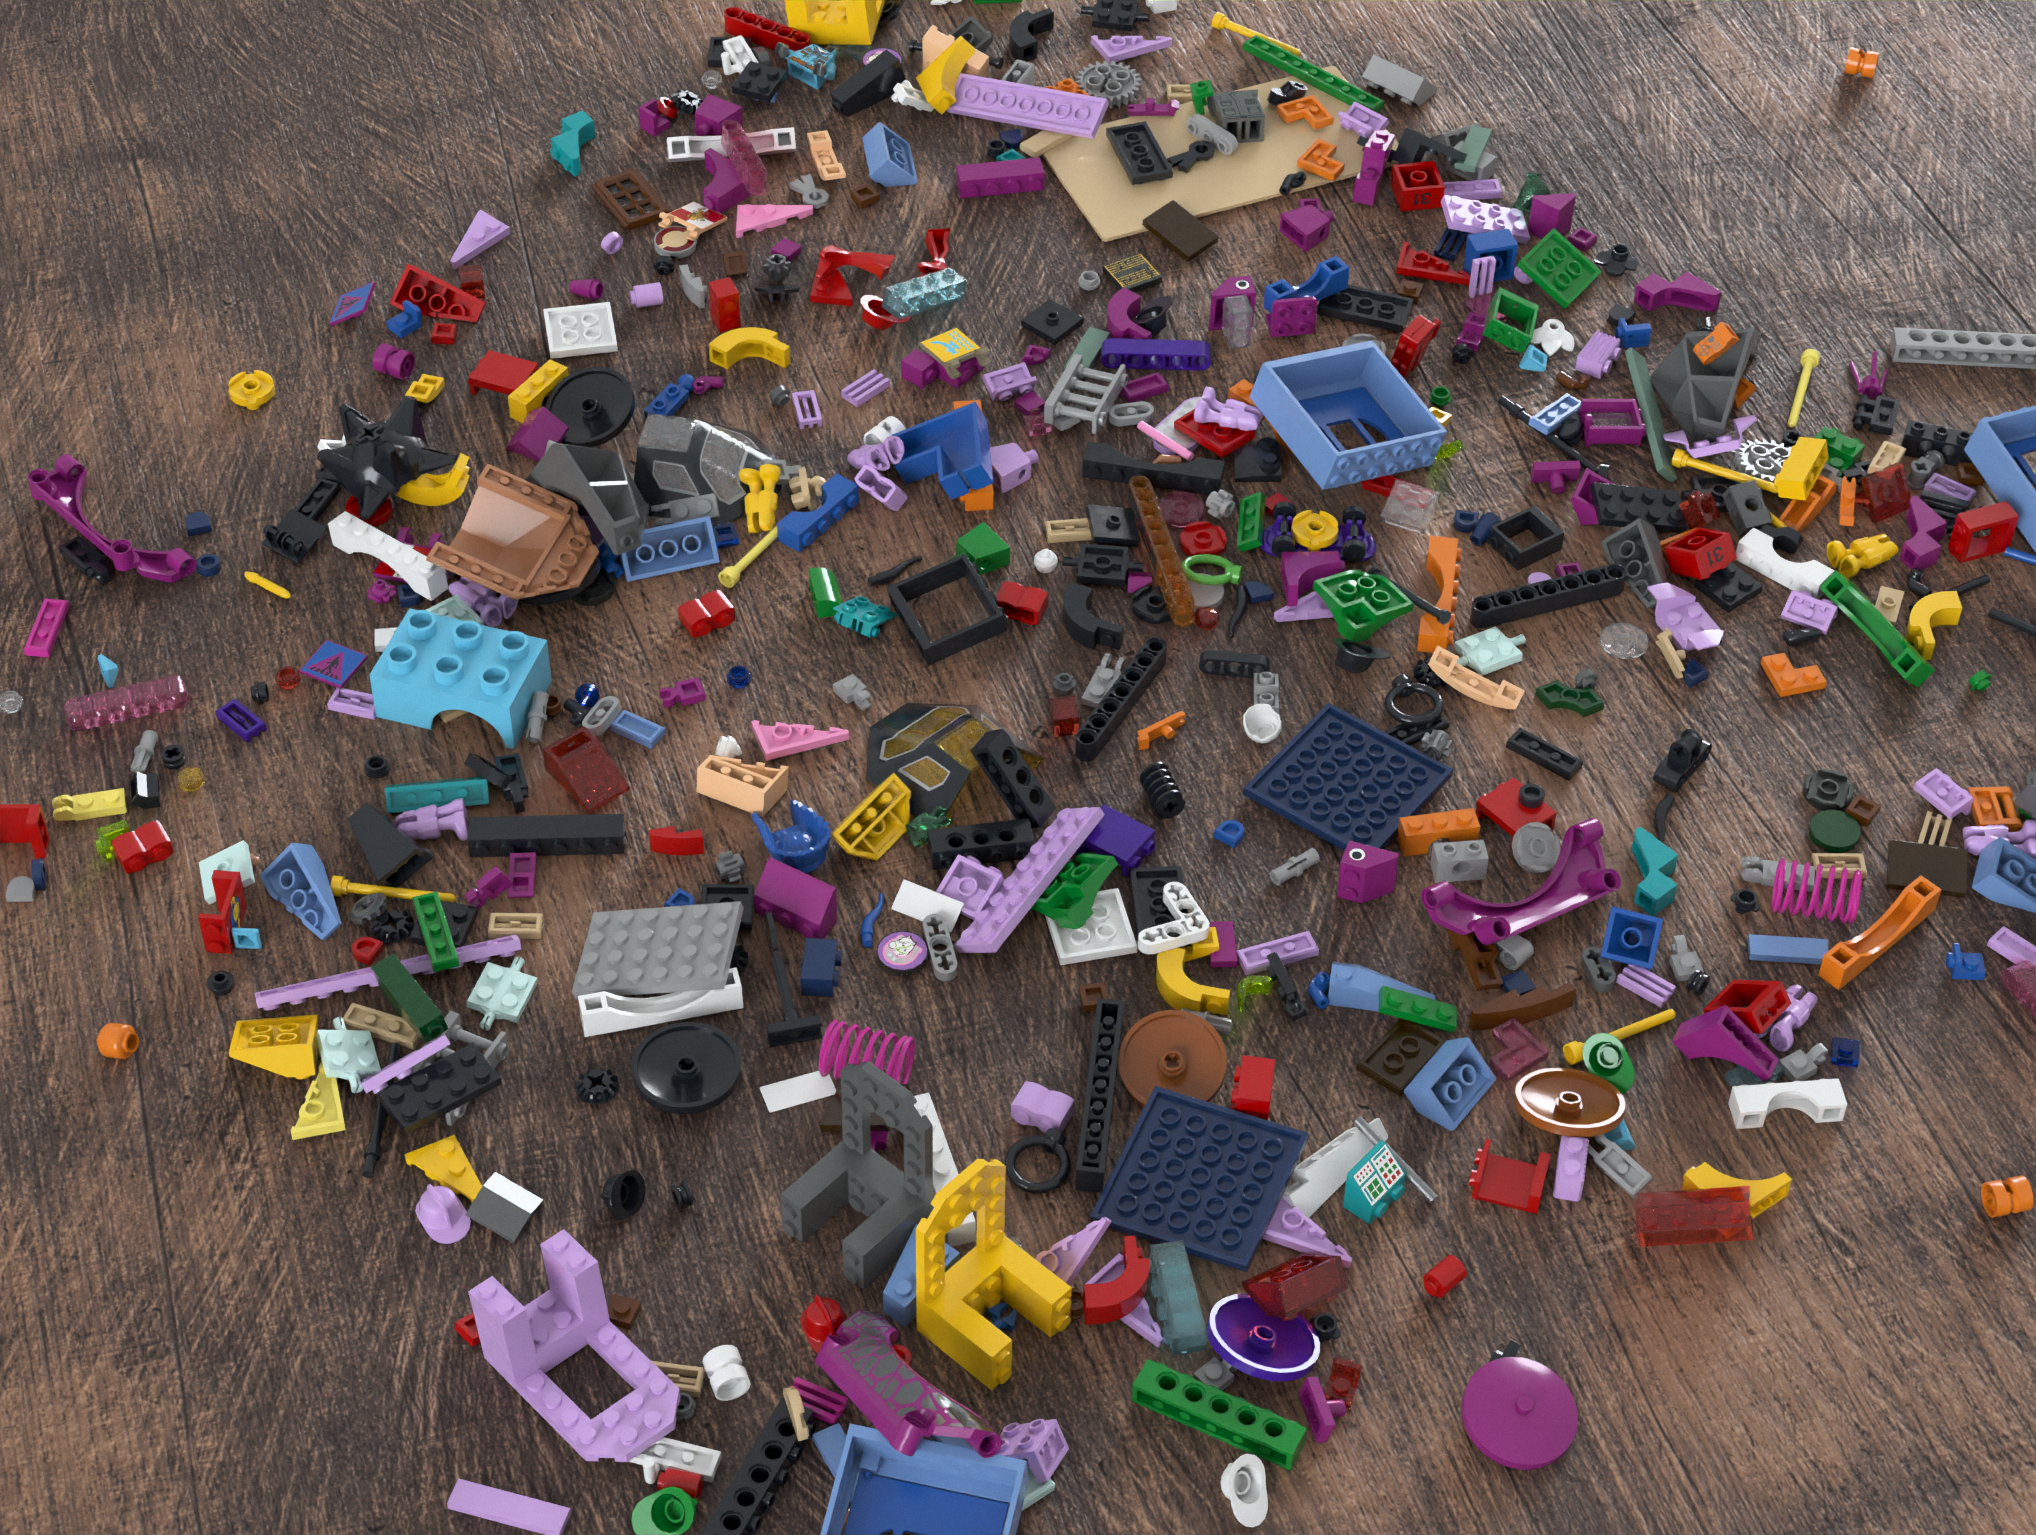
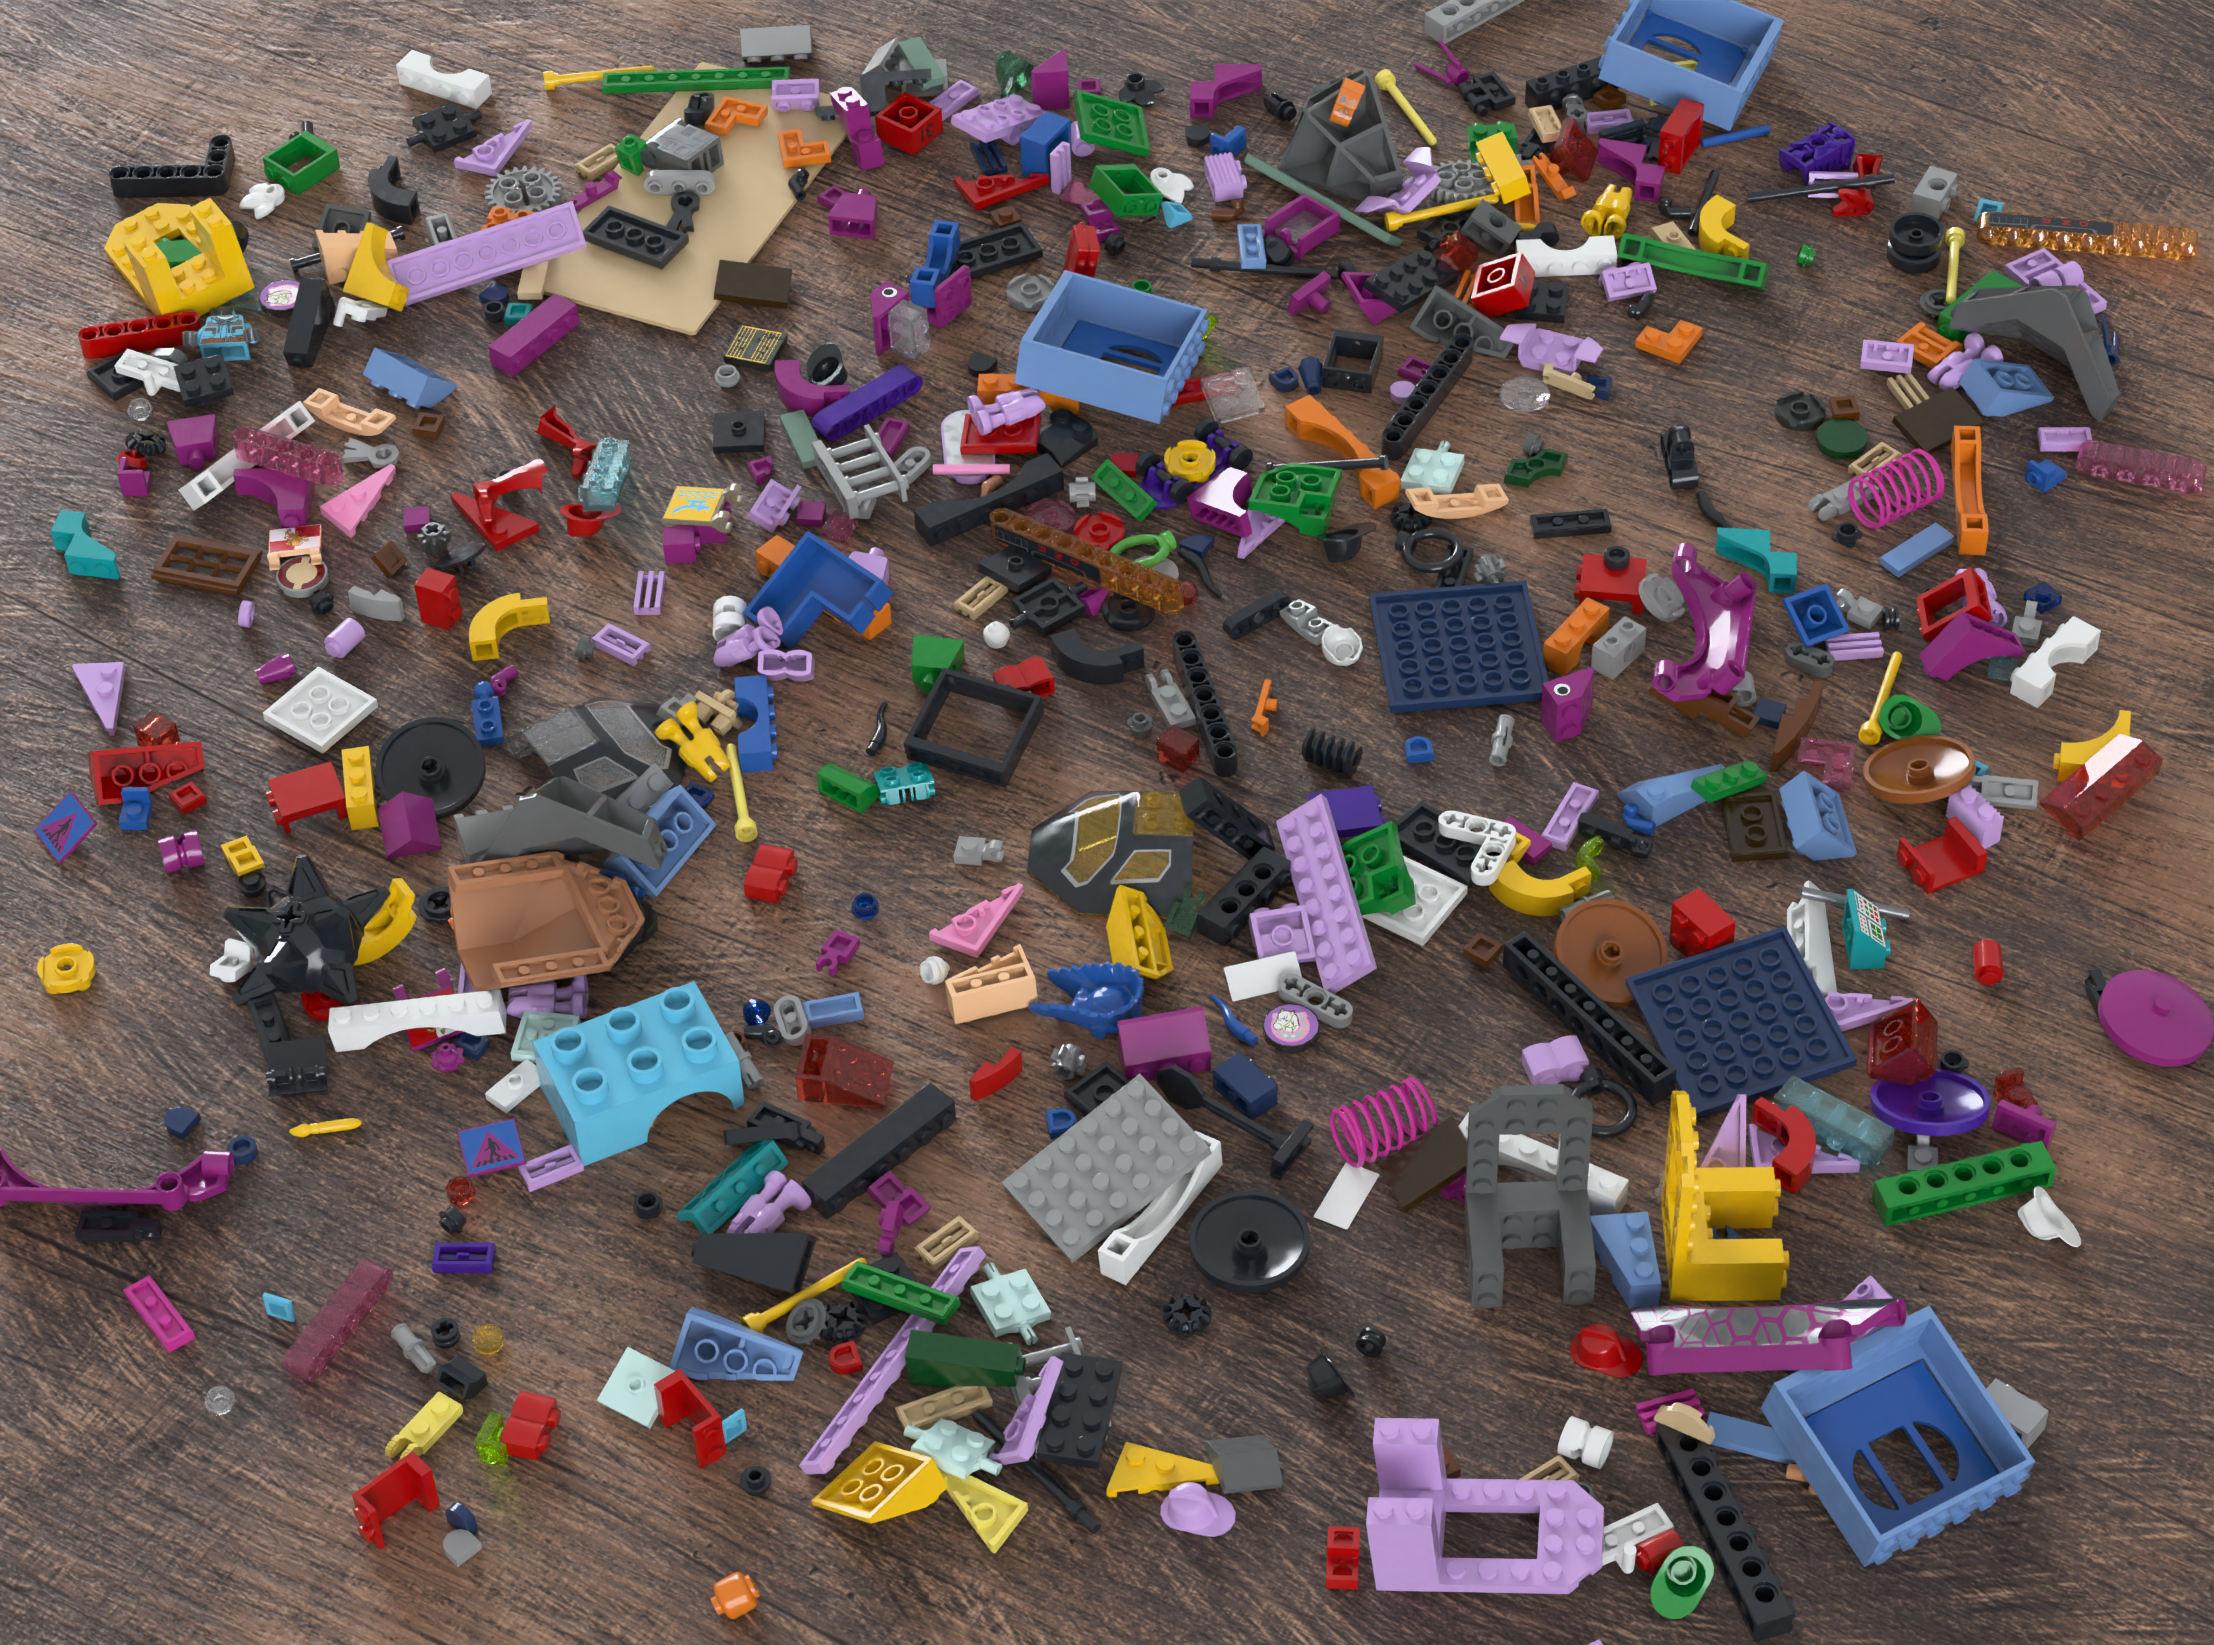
camera: 40 degrees left, 0 degrees up
(1790, 437) = (1449, 152): black bush -> none

